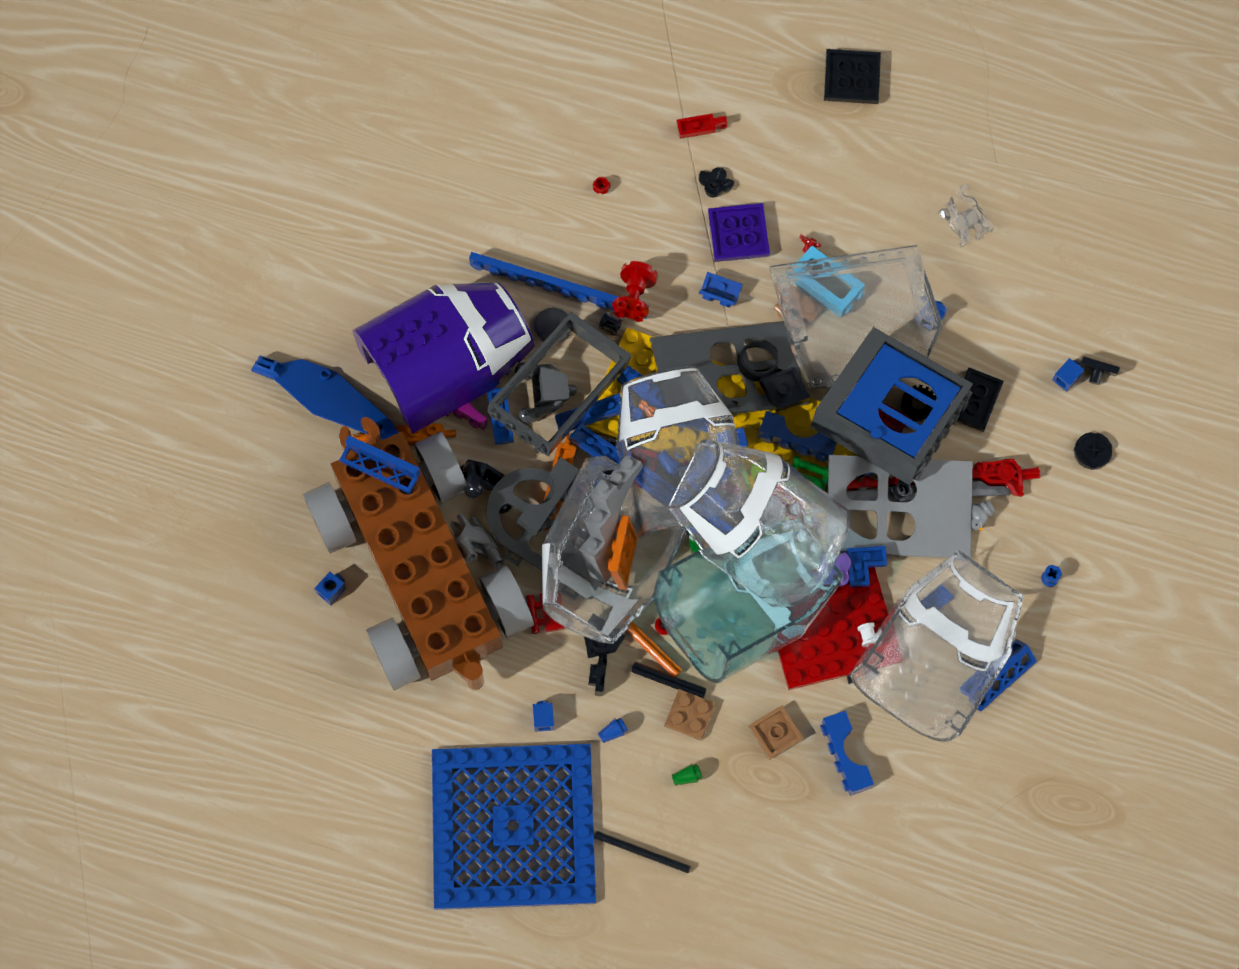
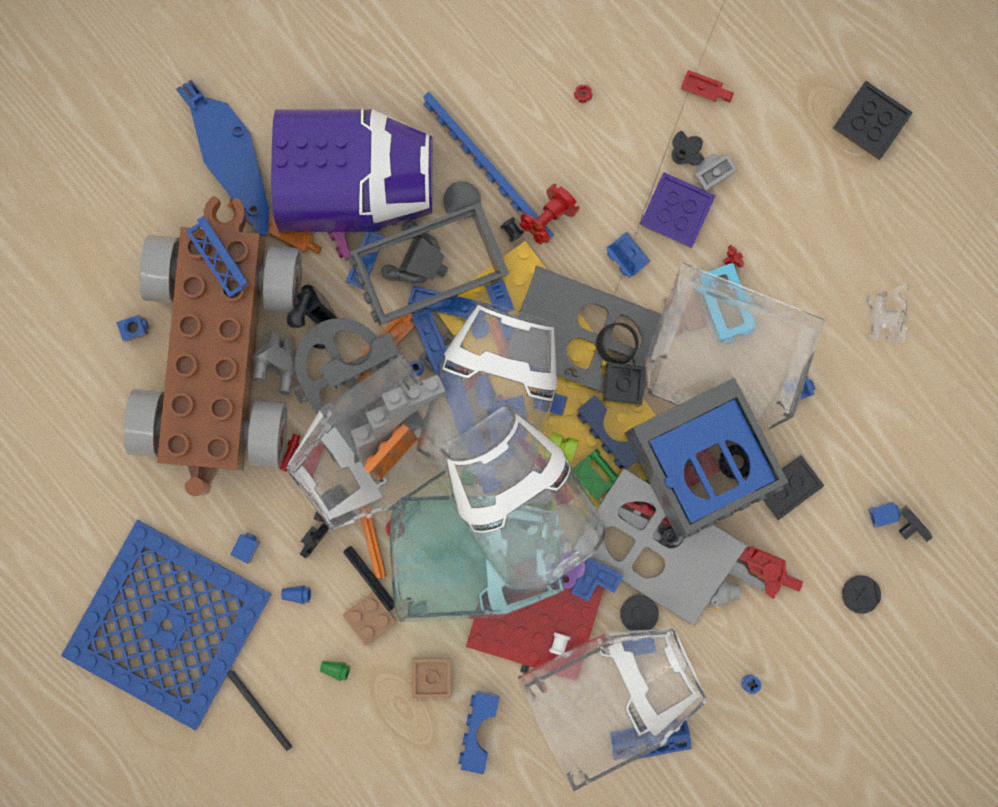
camera: 30 degrees right, 15 degrees up
(749, 184) = (714, 170): none -> light grey slope
(915, 569) = (639, 613): none -> black tile

